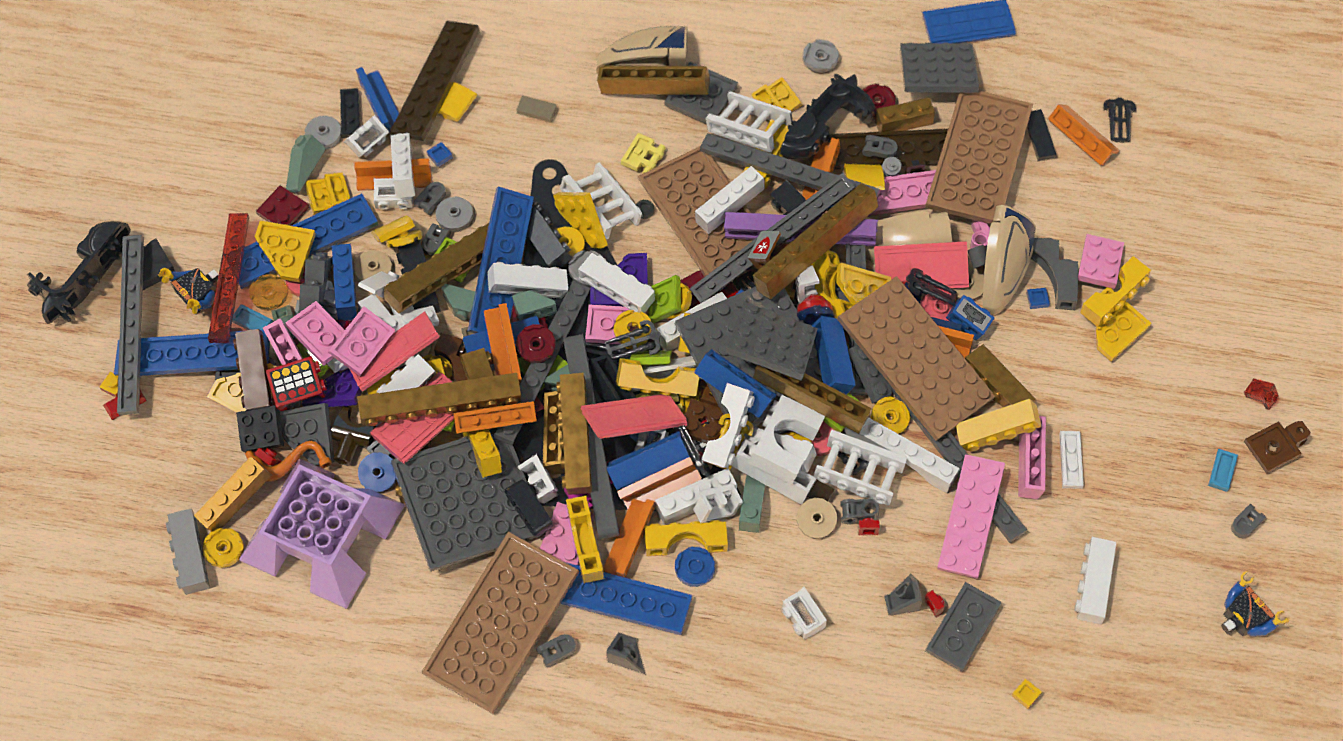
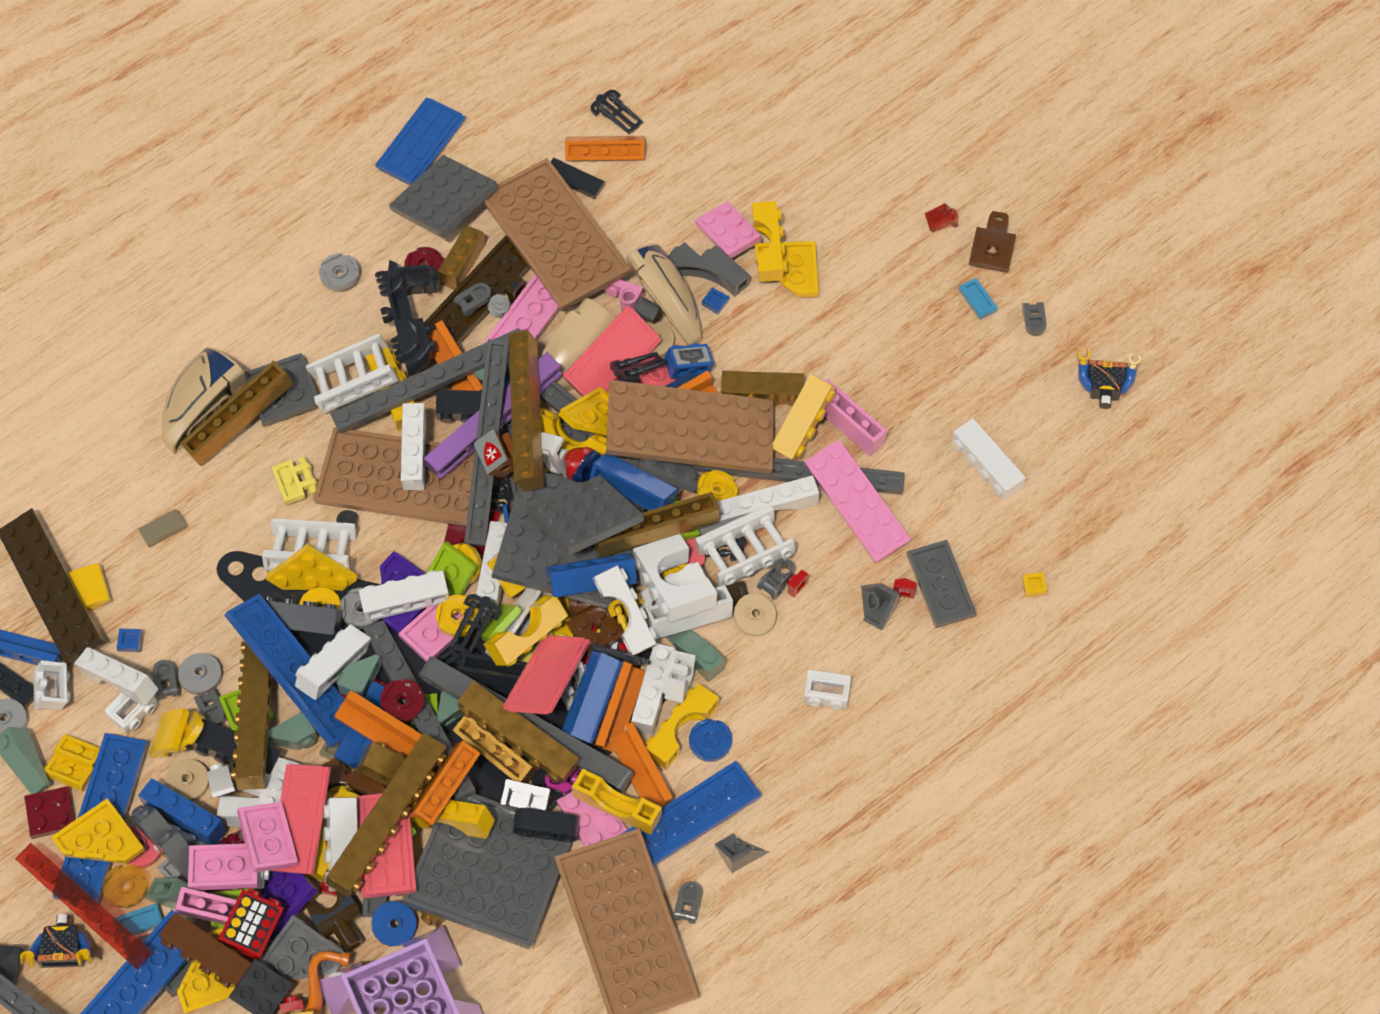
camera: 50 degrees left, 0 degrees up
(371, 170) = (90, 711): orange panel -> none
(779, 95) = (344, 333): yellow slope -> none
(866, 174) = (488, 327): yellow slope -> none
(1071, 459) = (872, 393): white tile -> none

